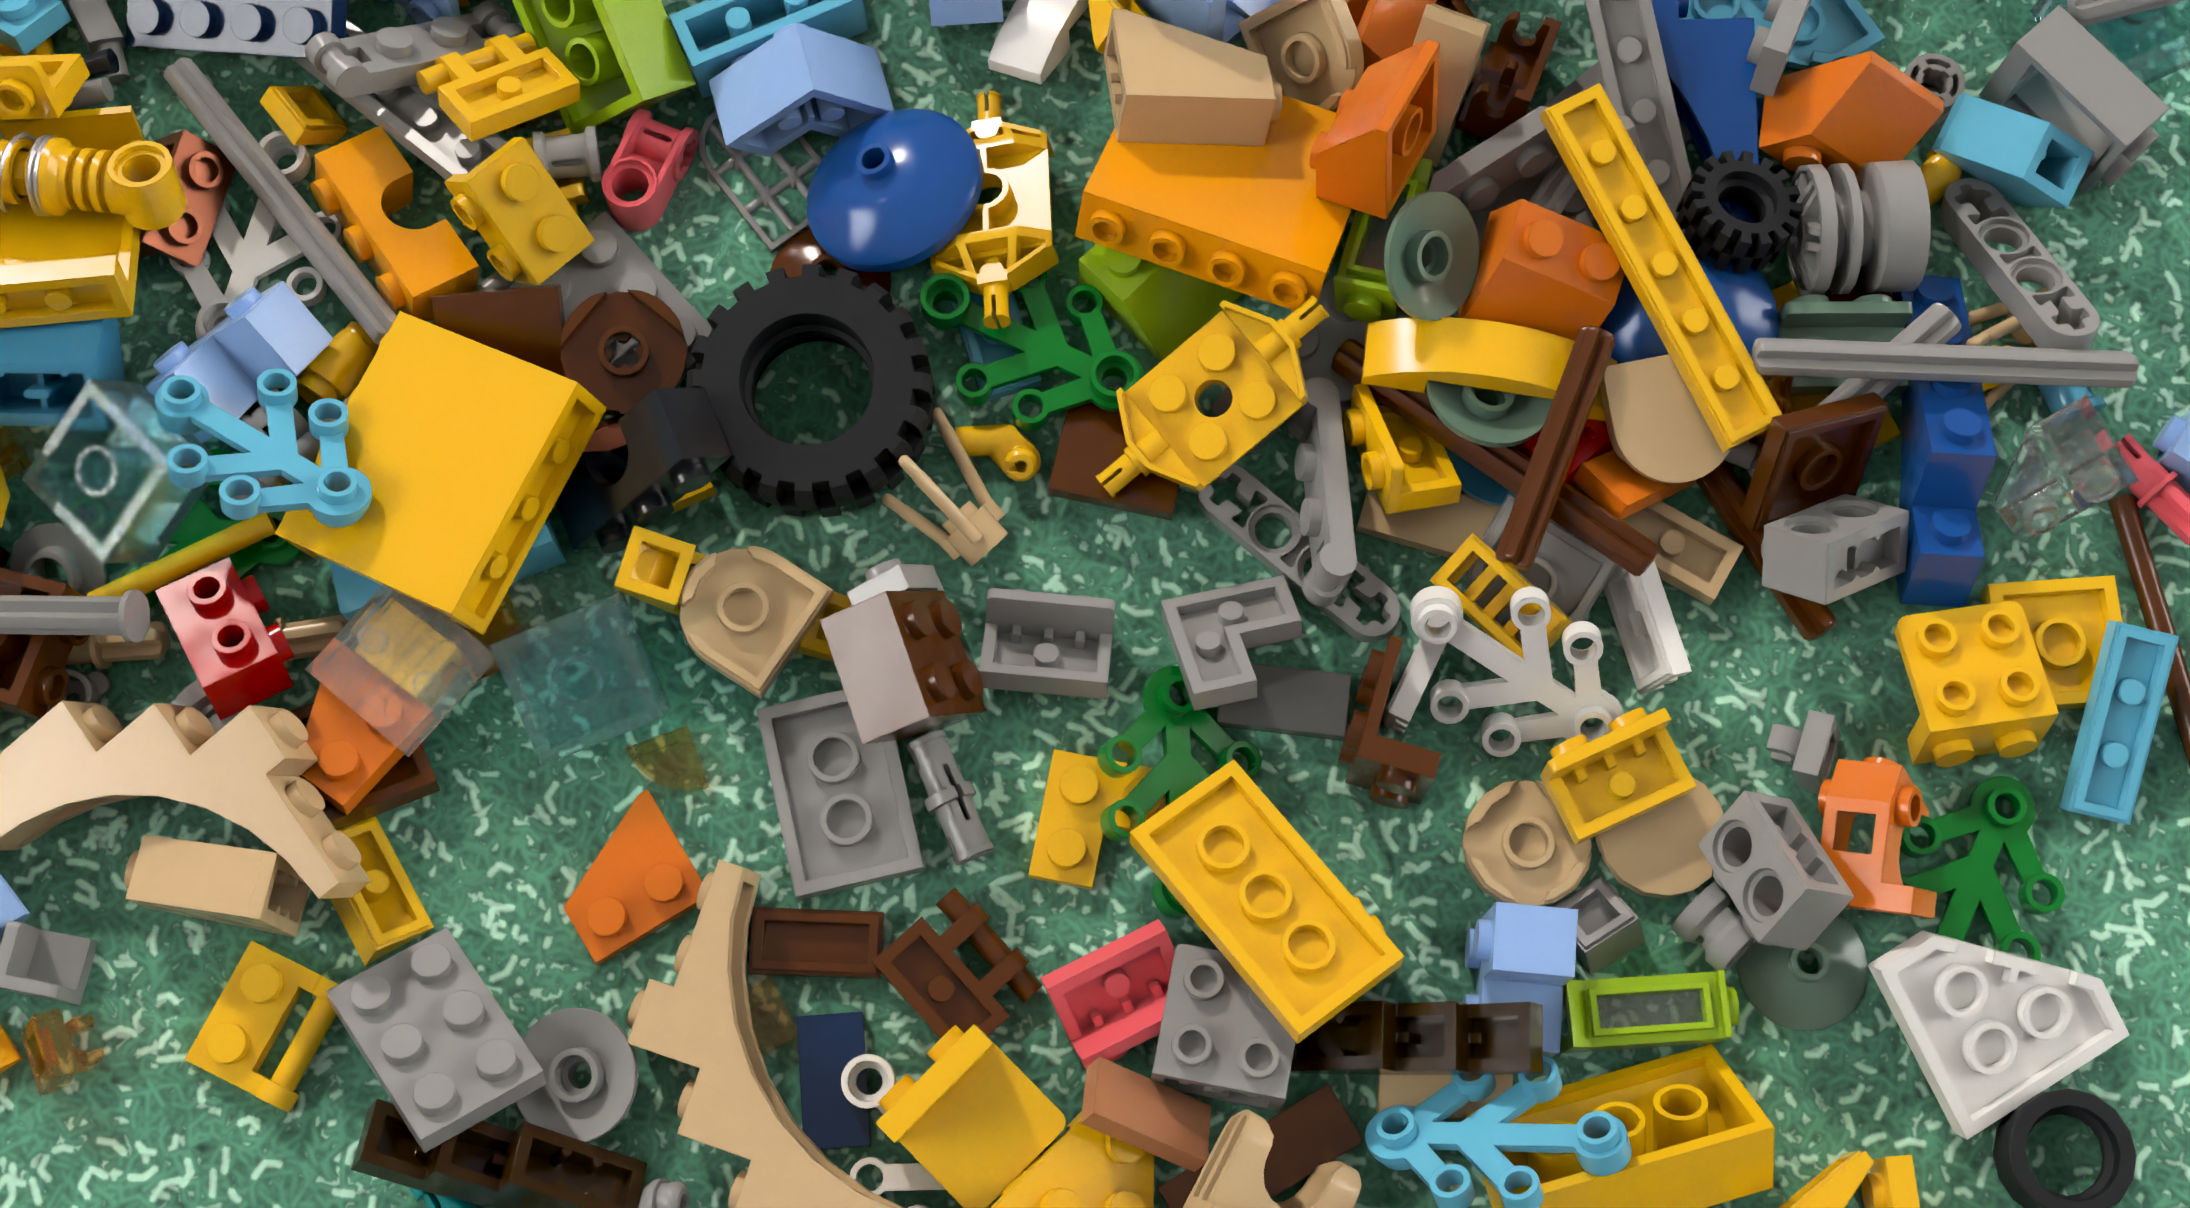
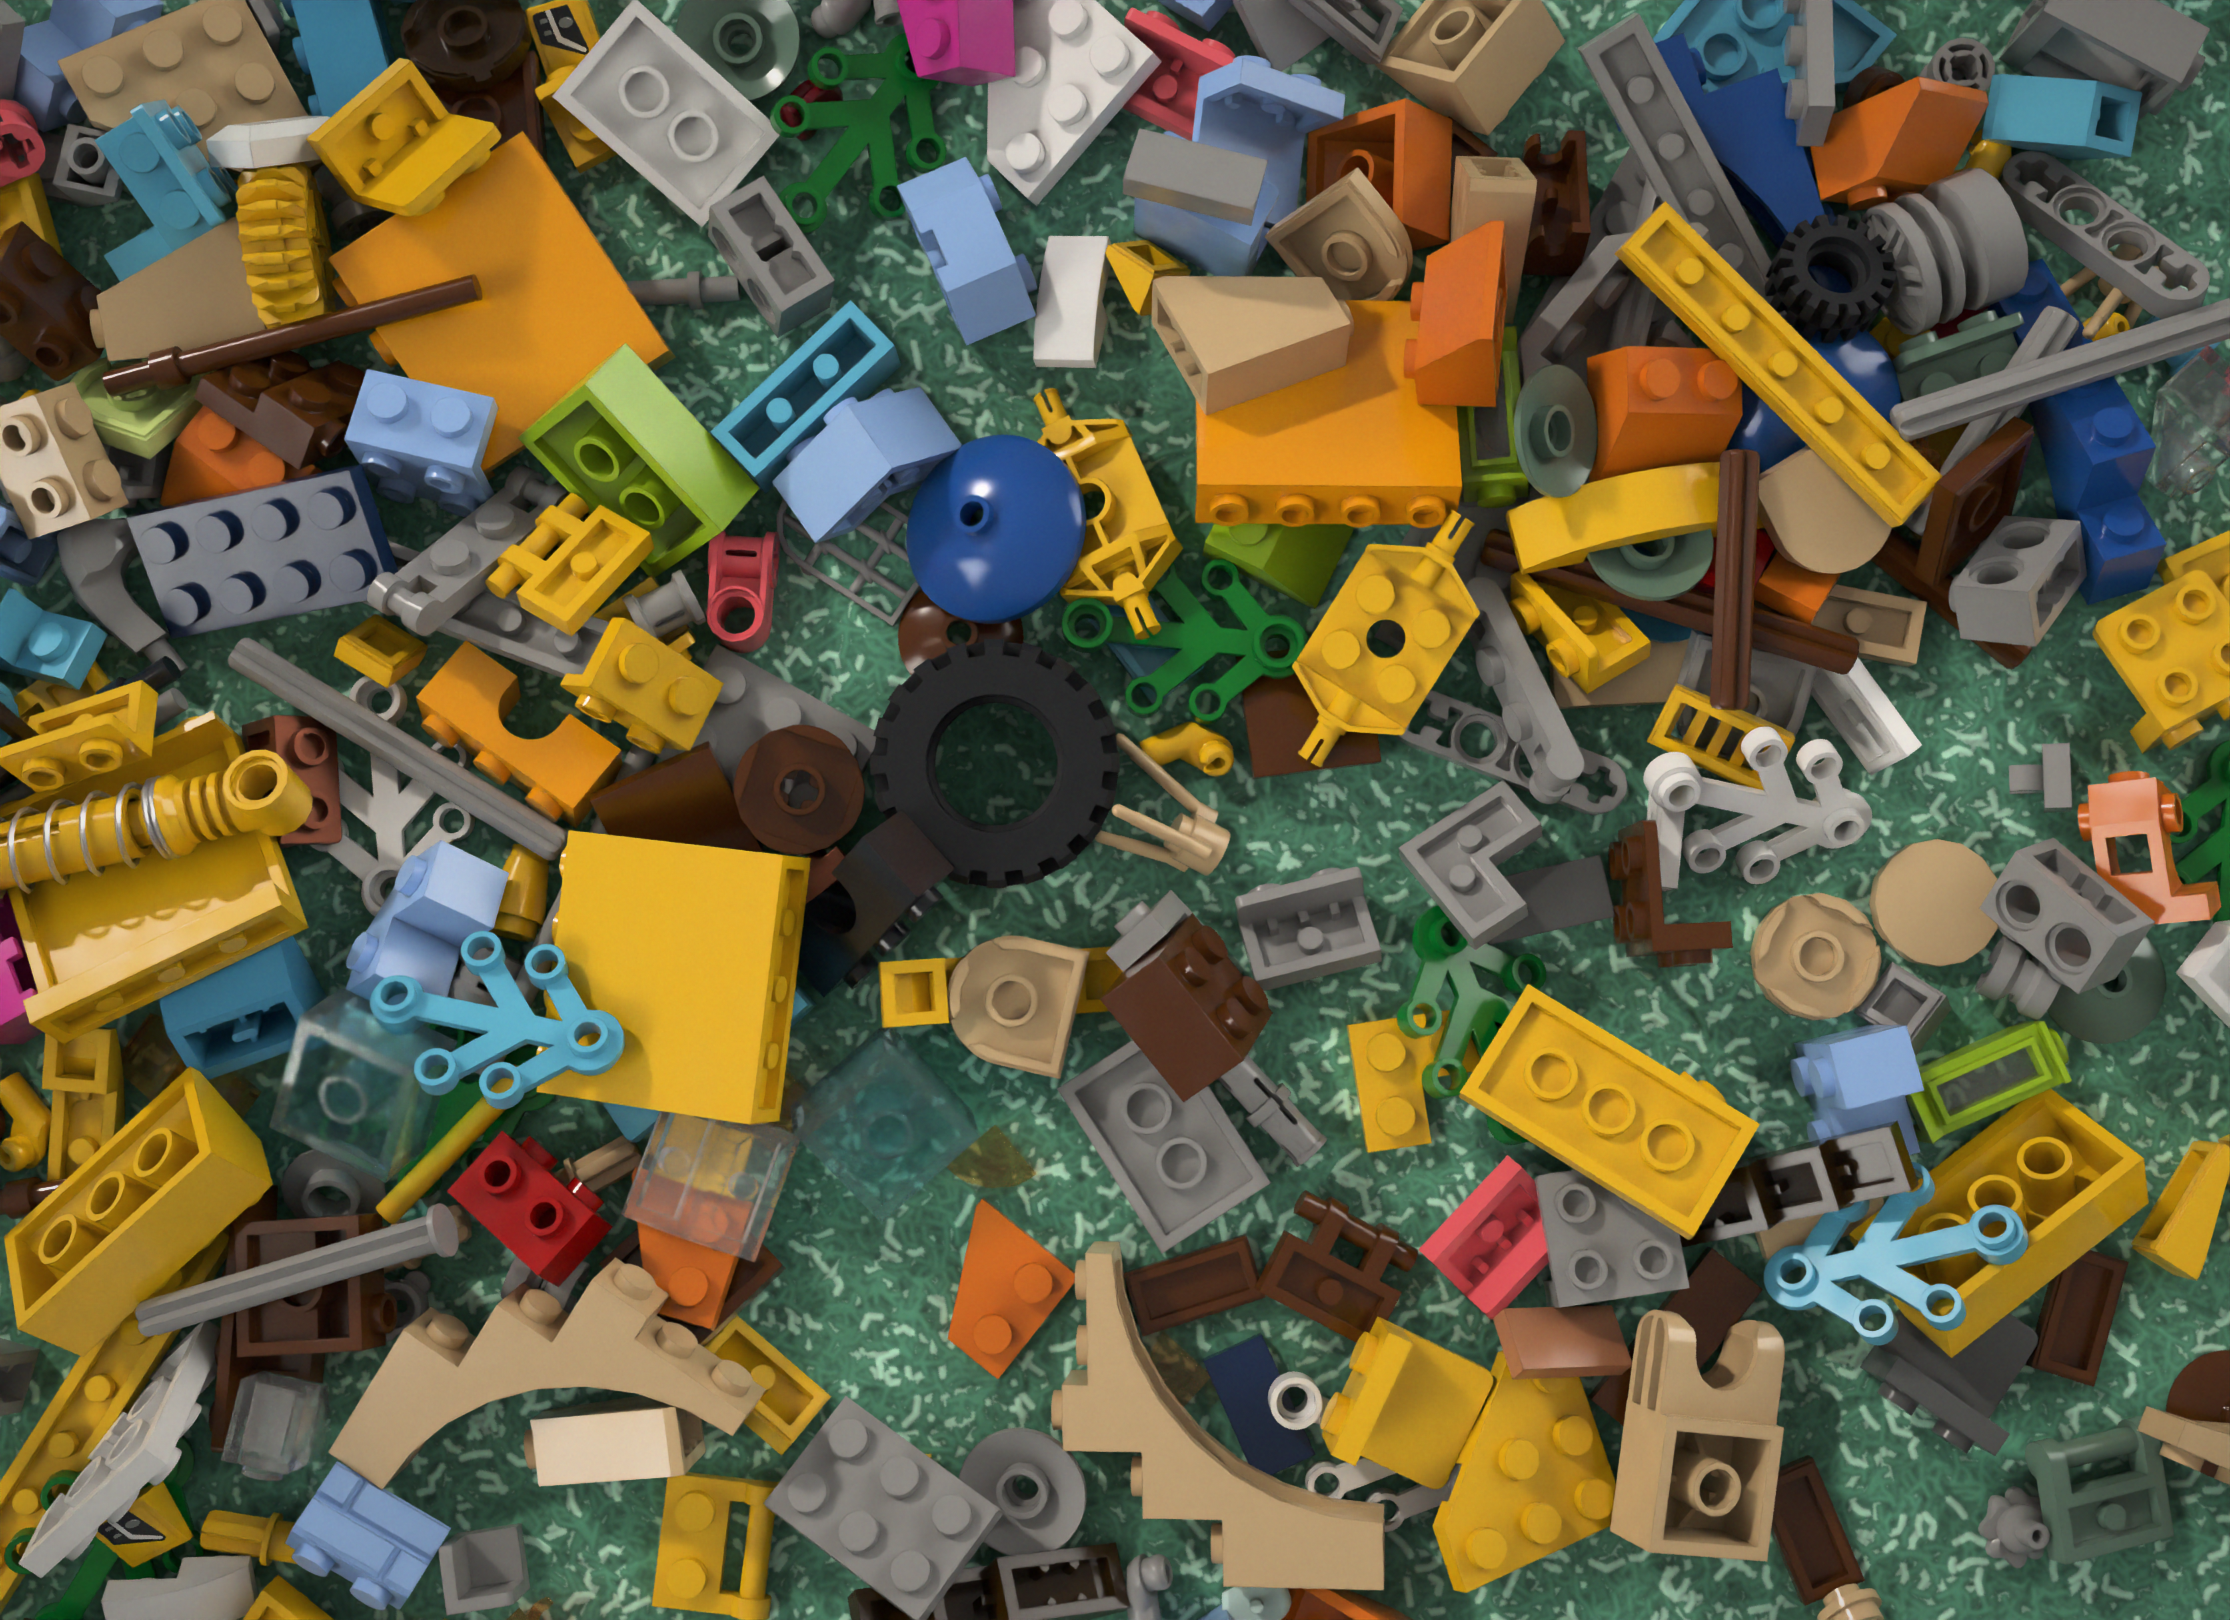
camera: 20 degrees left, 10 degrees up
(1616, 775) = (1885, 871): yellow bracket -> none

